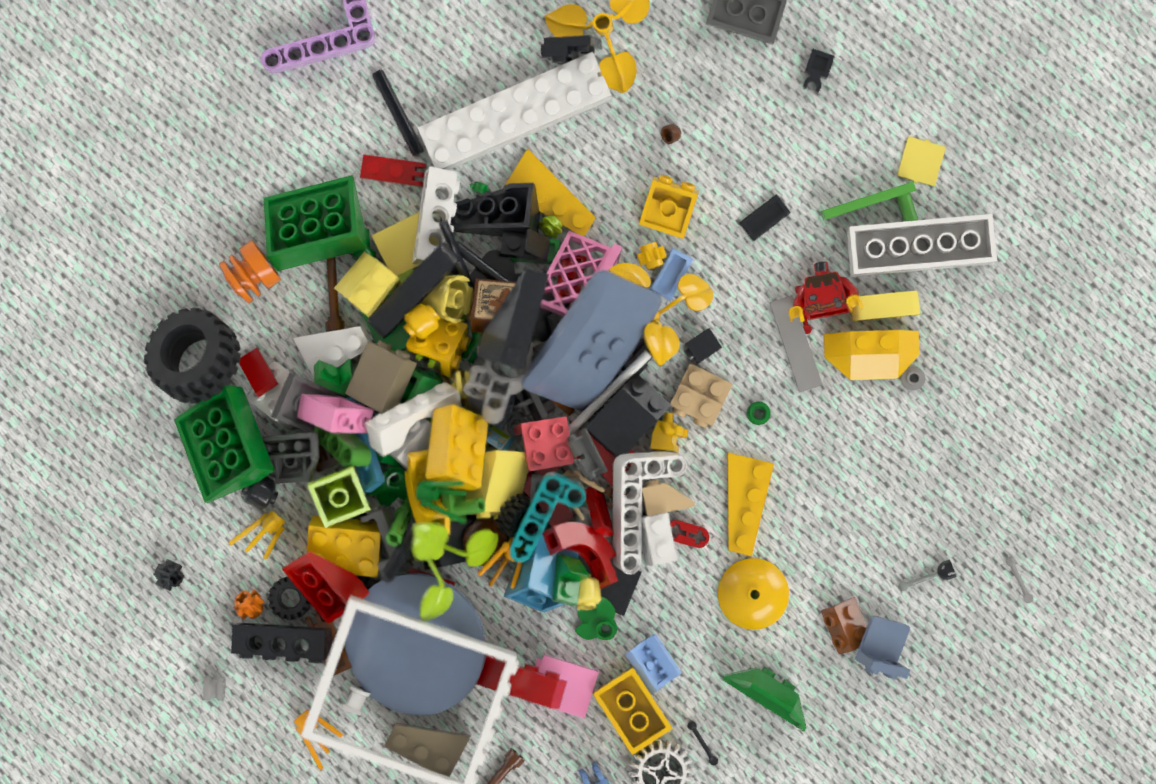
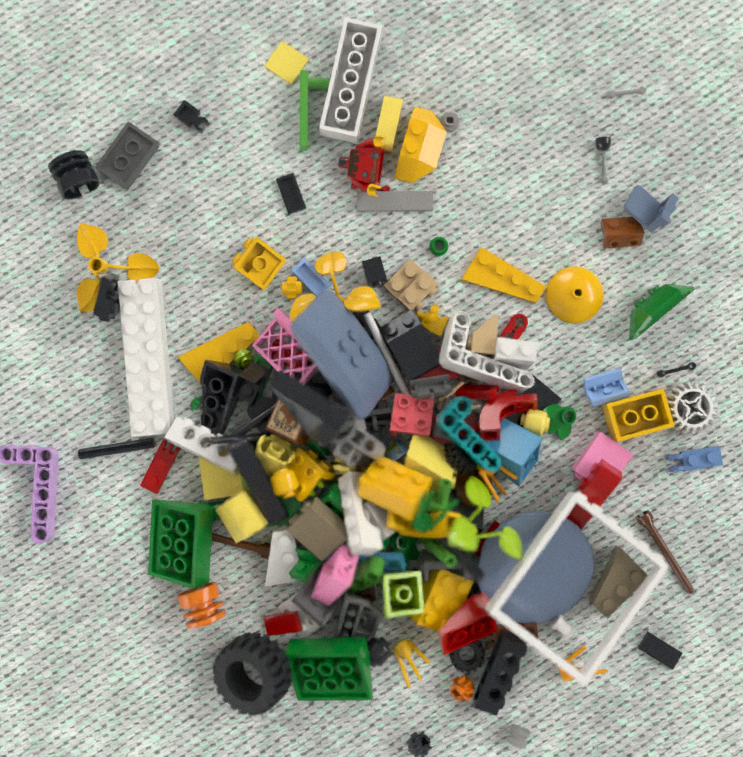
camera: 70 degrees left, 0 degrees up
(567, 579) = (524, 433): green slope -> none
(670, 133) = (202, 243): reddish brown hinge -> none

